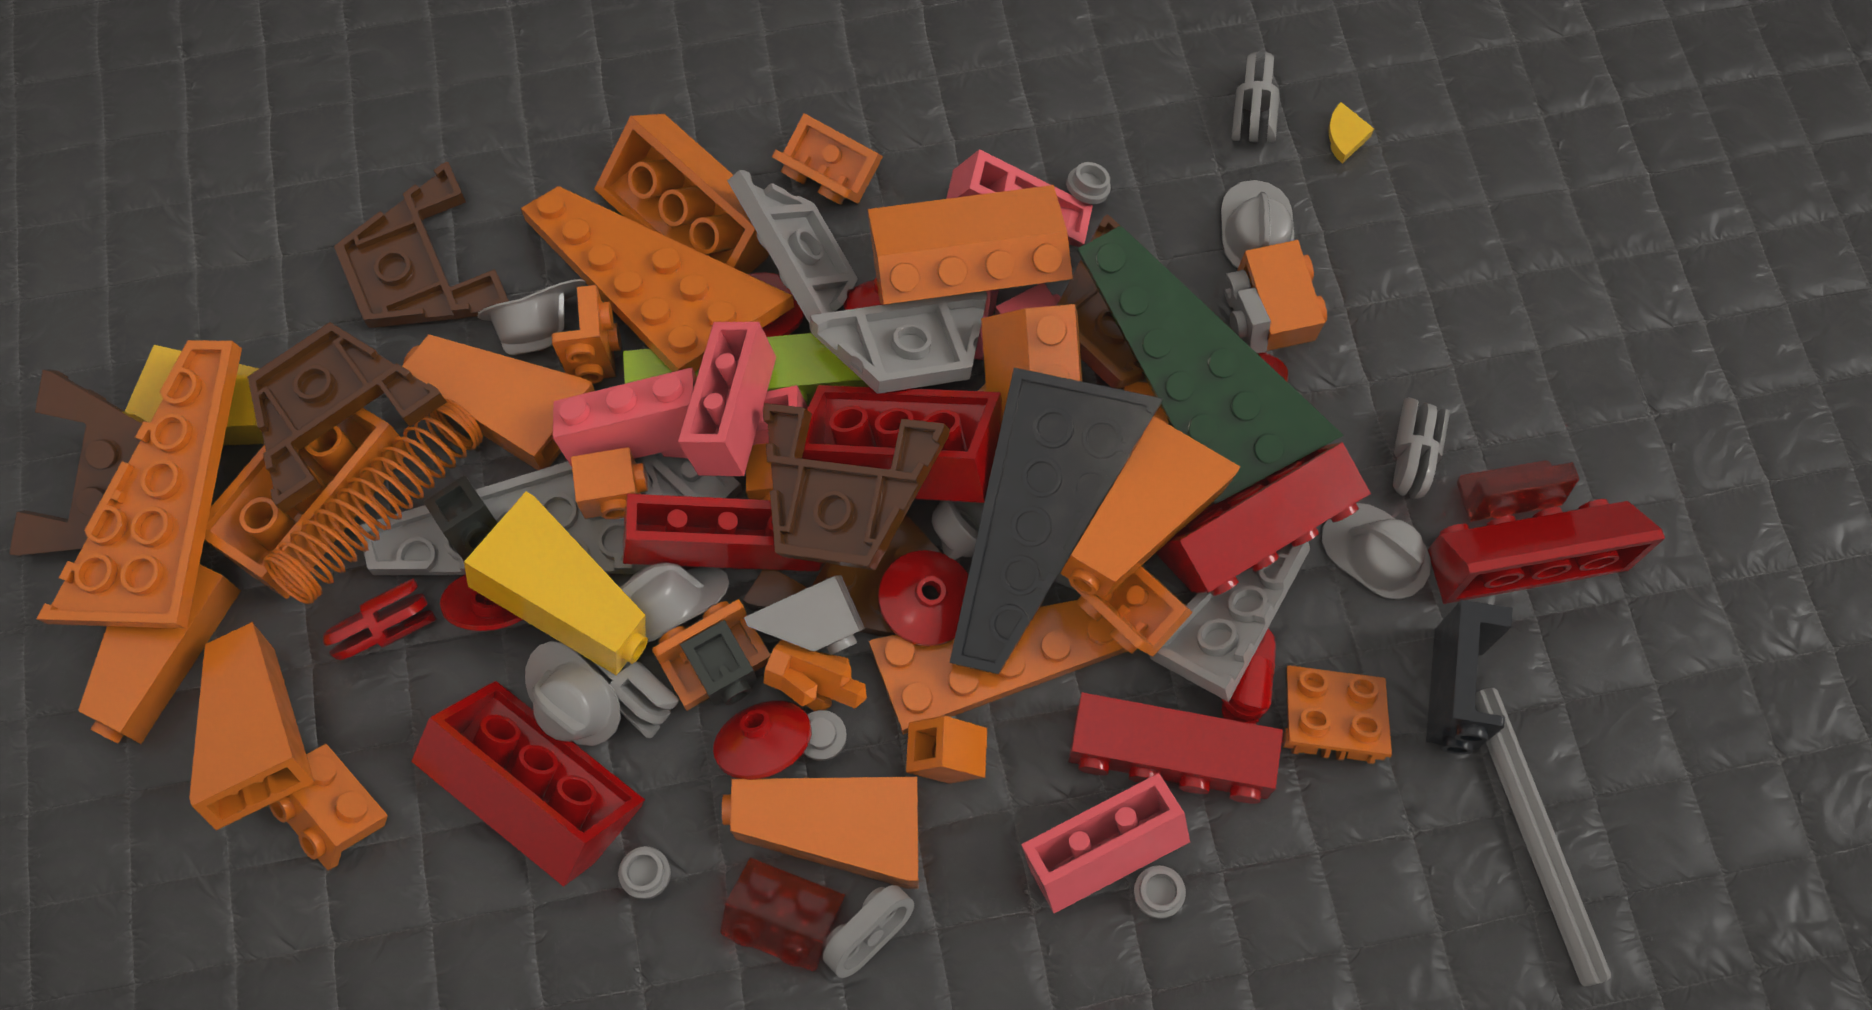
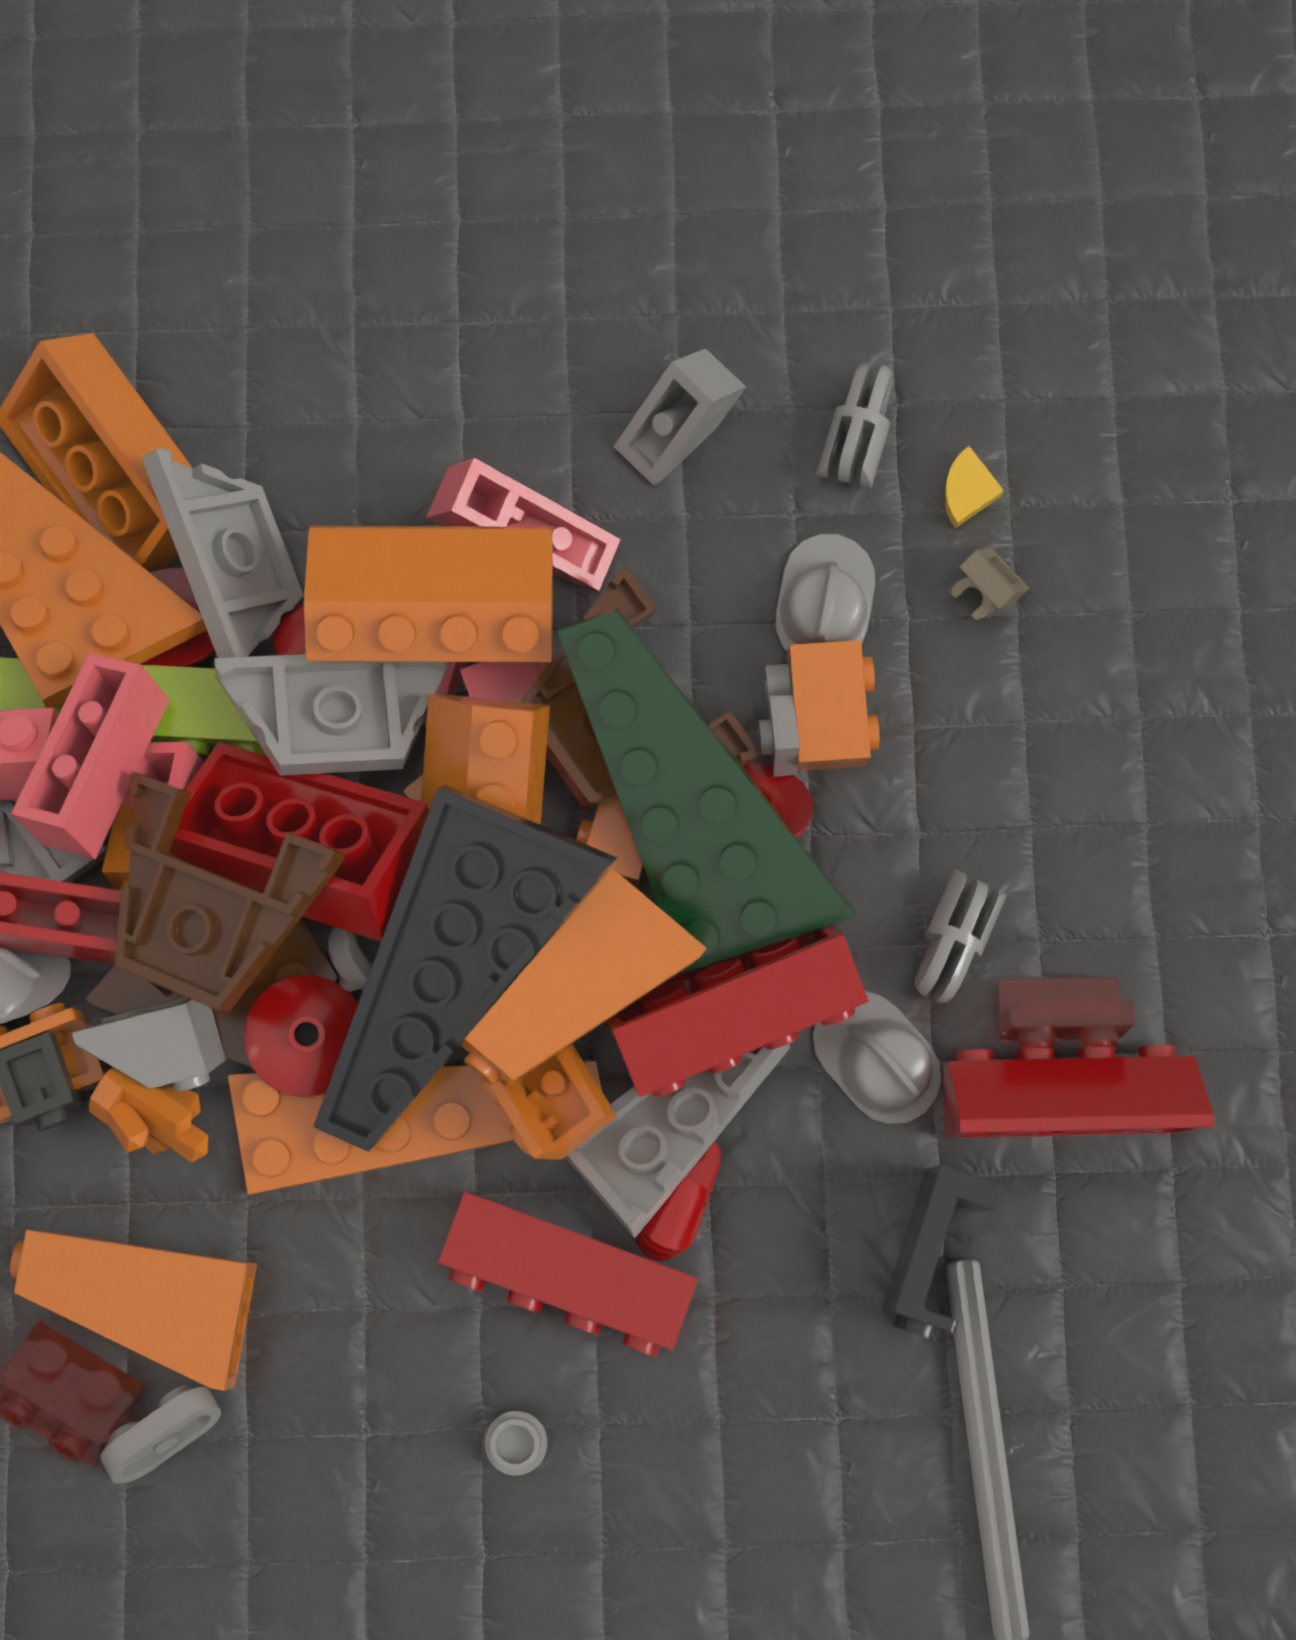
camera: 10 degrees right, 10 degrees up
(762, 740) = (75, 1182): red dish -> none
(827, 735) = (150, 1184): light grey plate -> none
(830, 159) = (291, 429): orange bracket -> none
(946, 749) = (291, 1233): orange brick -> none
(1089, 183) = (619, 511): light grey plate -> none
(1106, 842) = (457, 1380): coral brick -> none
(1119, 110) = (679, 414): none -> light grey slope
(1337, 714) = (776, 1259): orange hinge -> none
(1380, 189) = (994, 580): none -> dark tan tile

